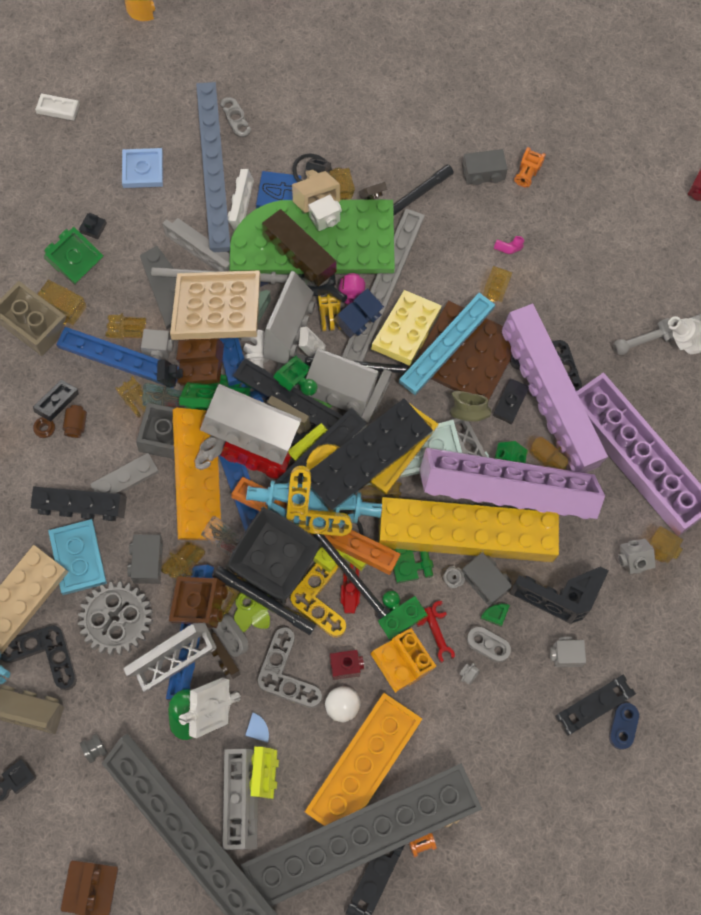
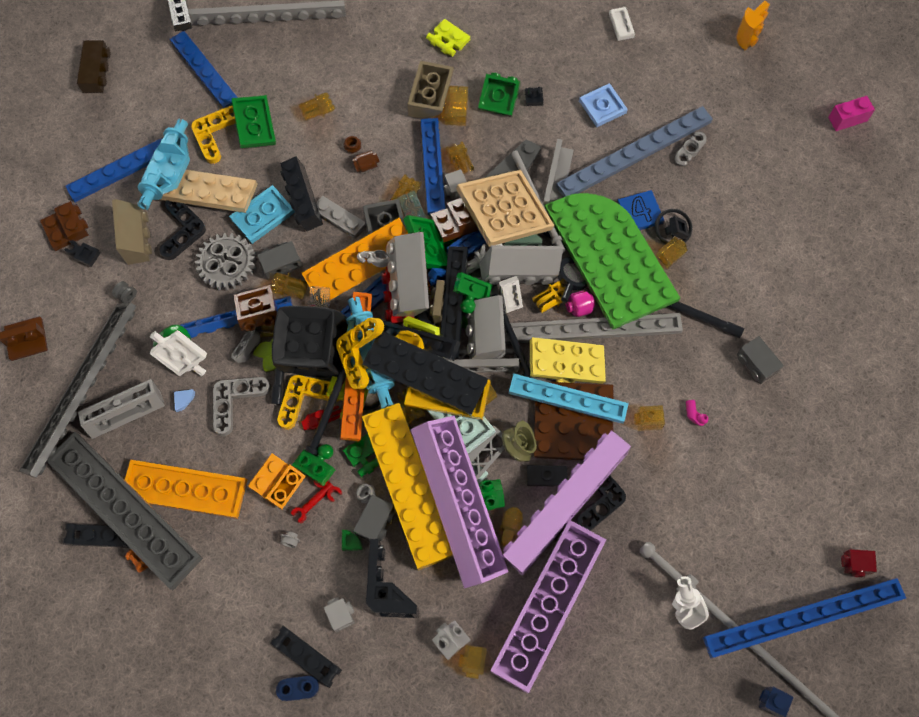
camera: 70 degrees right, 0 degrees up
(55, 400) = (375, 140): black plate -> none
(165, 650) = (211, 307): light grey fence -> none
(168, 373) = (431, 202): black tile -> none
(227, 665) = (222, 354): dark brown plate -> none
(241, 198) = (616, 185): white plate -> none
(264, 772) = (146, 416): neon yellow plate -> none
(299, 247) = (588, 243): dark brown brick -> none
(314, 188) = (648, 233): tan hinge -> none
(325, 212) = (632, 248): white brick -> none
(342, 703) = (227, 452): white hair -> none
(346, 664) = (256, 440): dark red brick -> none
(358, 313) = (555, 316): dark blue piece -> none
(373, 191) = (678, 279): dark brown plate -> none
(489, 643) = (320, 545): light grey plate -> none
(529, 167) = (786, 397): orange connector -> none

